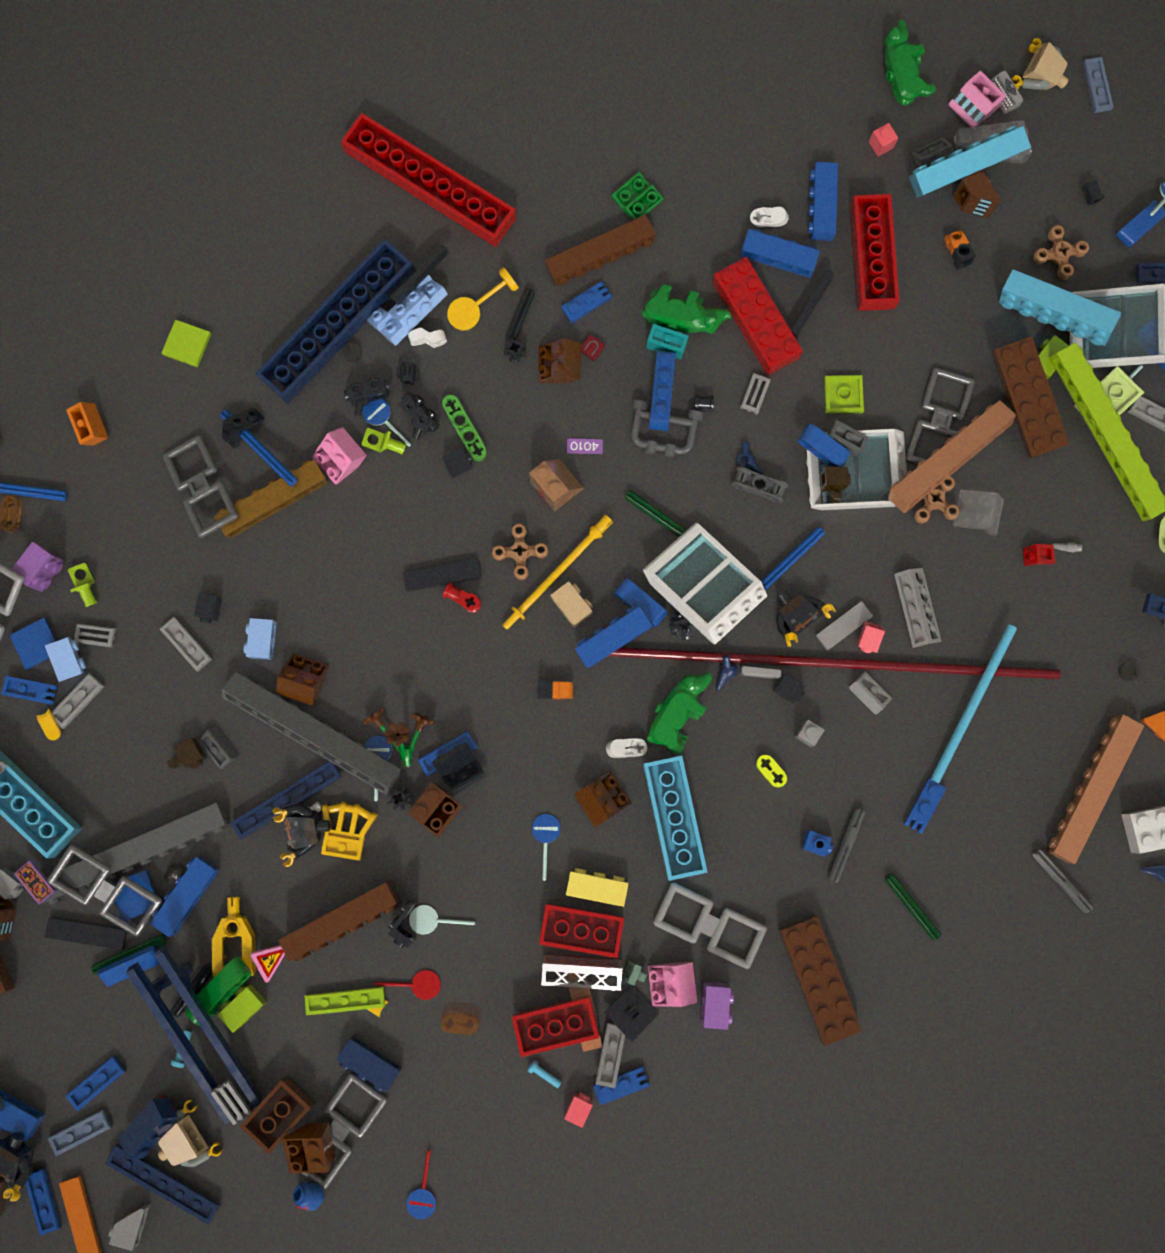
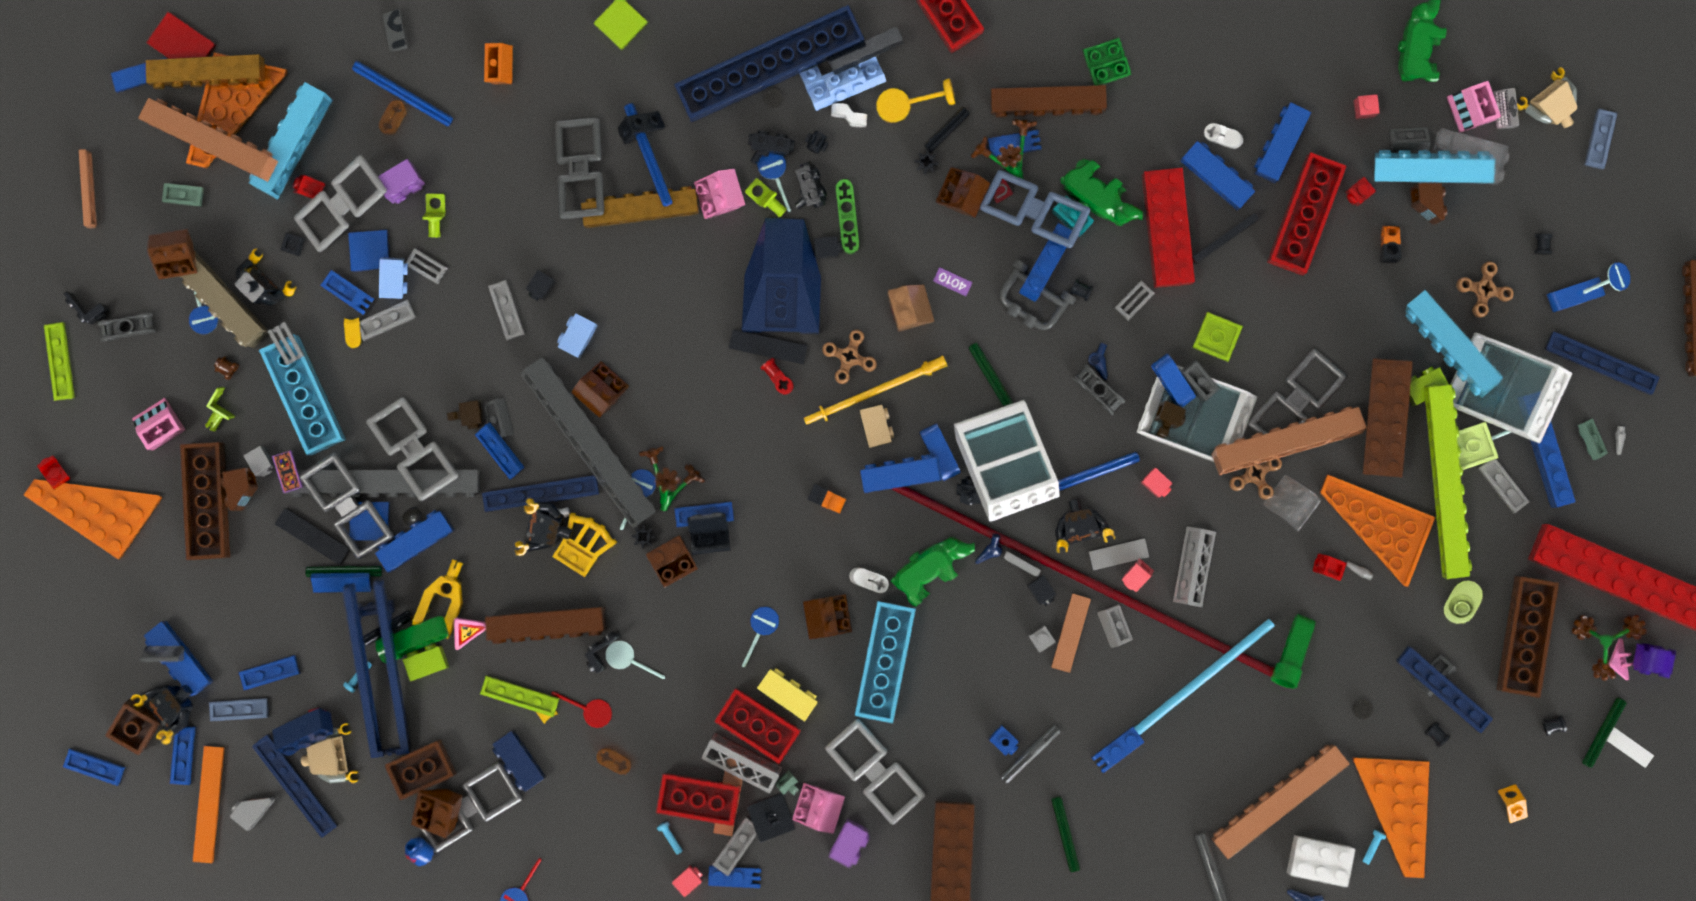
camera: 25 degrees right, 5 degrees up
(147, 809) = (412, 448): none -> light grey bar
(231, 776) = (499, 451): none -> blue tile
(240, 1115) = (387, 756): light grey tile -> none
(429, 509) = (782, 281): none -> dark blue wedge
(587, 308) = (1011, 154): none -> reddish brown plant
(630, 347) = (1035, 208): none -> sand blue bar
(774, 768) = (996, 656): neon yellow beam -> none
(833, 716) = (1070, 633): none -> nougat tile
(850, 546) = (1157, 483): none -> coral brick
(911, 216) = (1359, 192): none -> red bracket
(1045, 645) = (1288, 670): none -> green beam
(1074, 497) = (1385, 526): none -> orange wing

